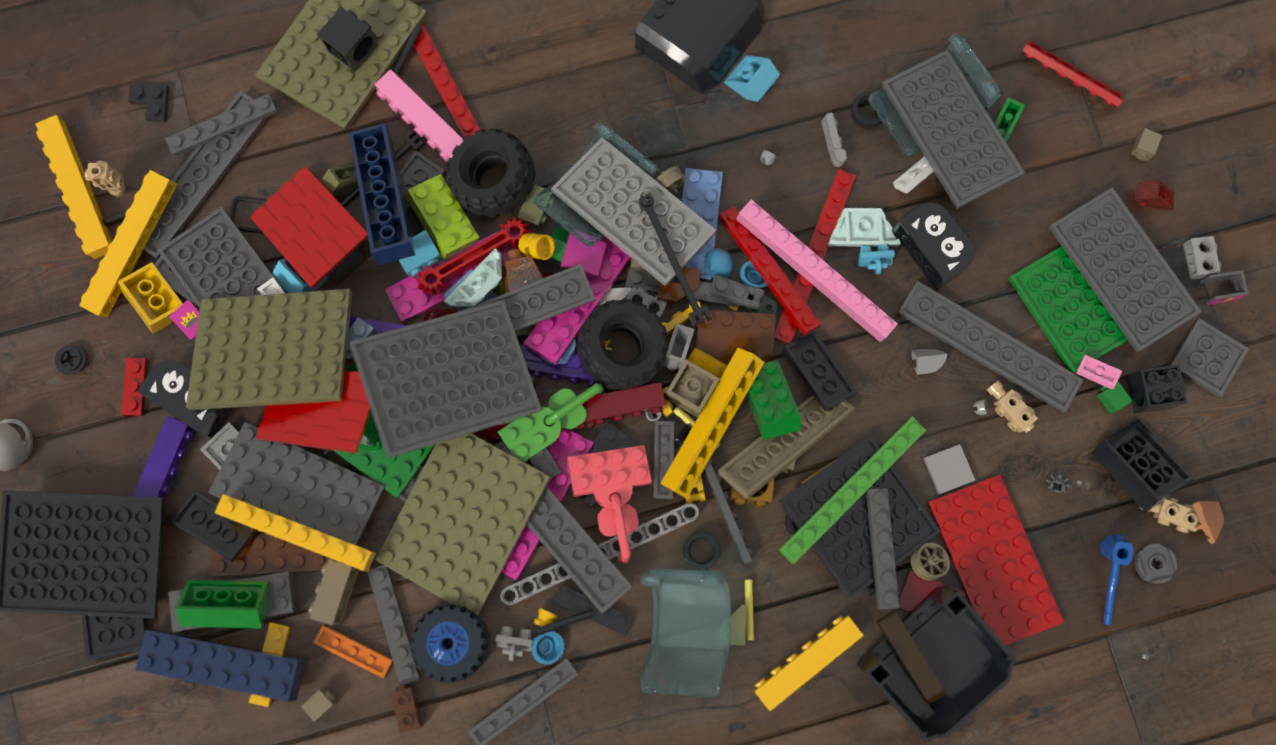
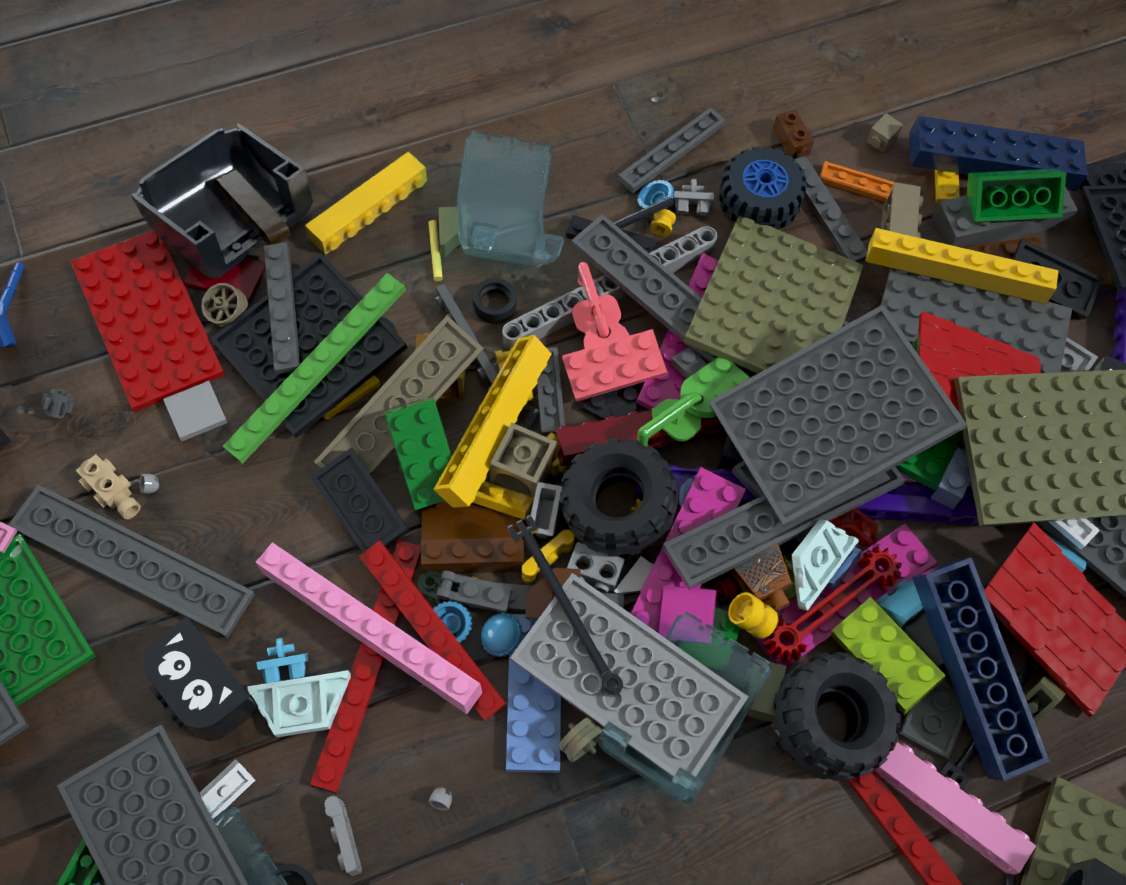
camera: 170 degrees right, 15 degrees down
(928, 360) = (215, 536): light grey brick -> none

